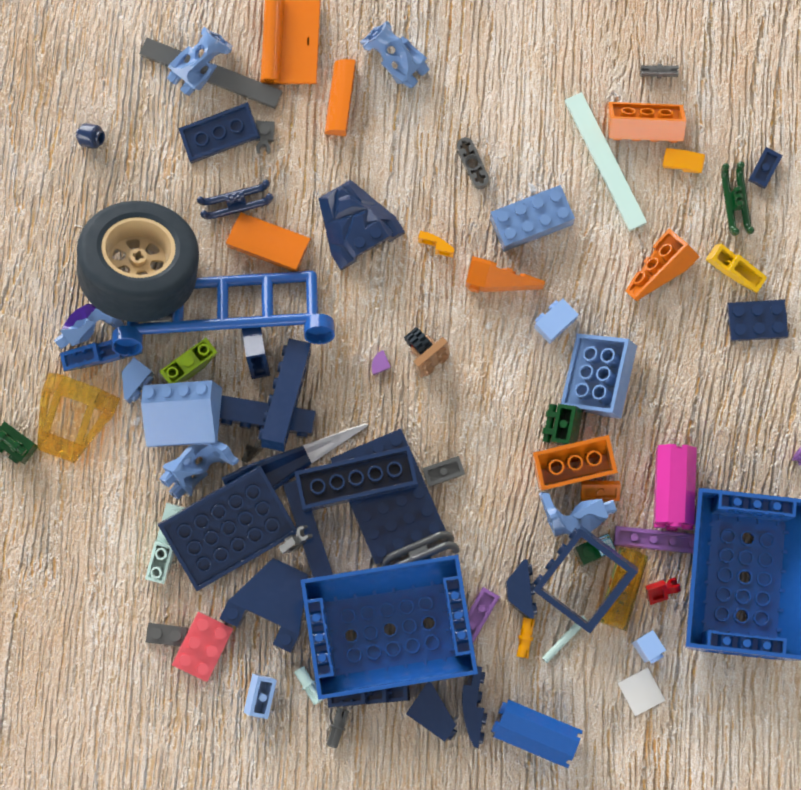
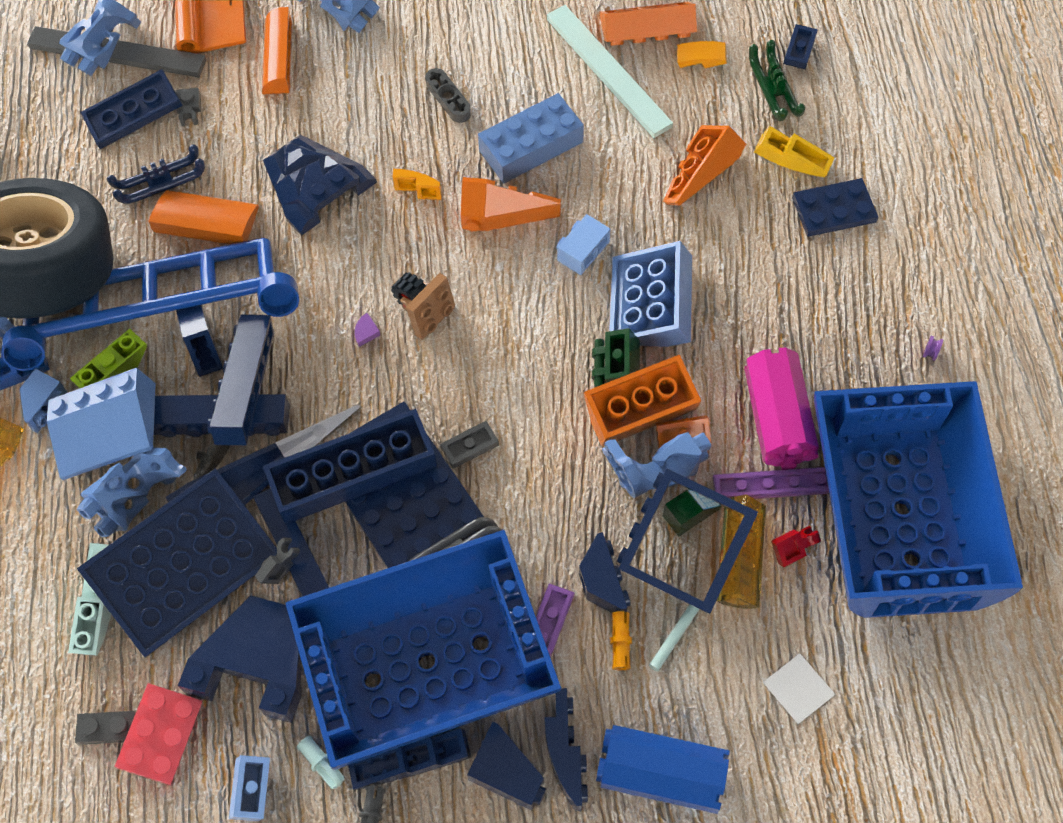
camera: 10 degrees left, 15 degrees down
(649, 647) = (796, 619): light blue brick -> none

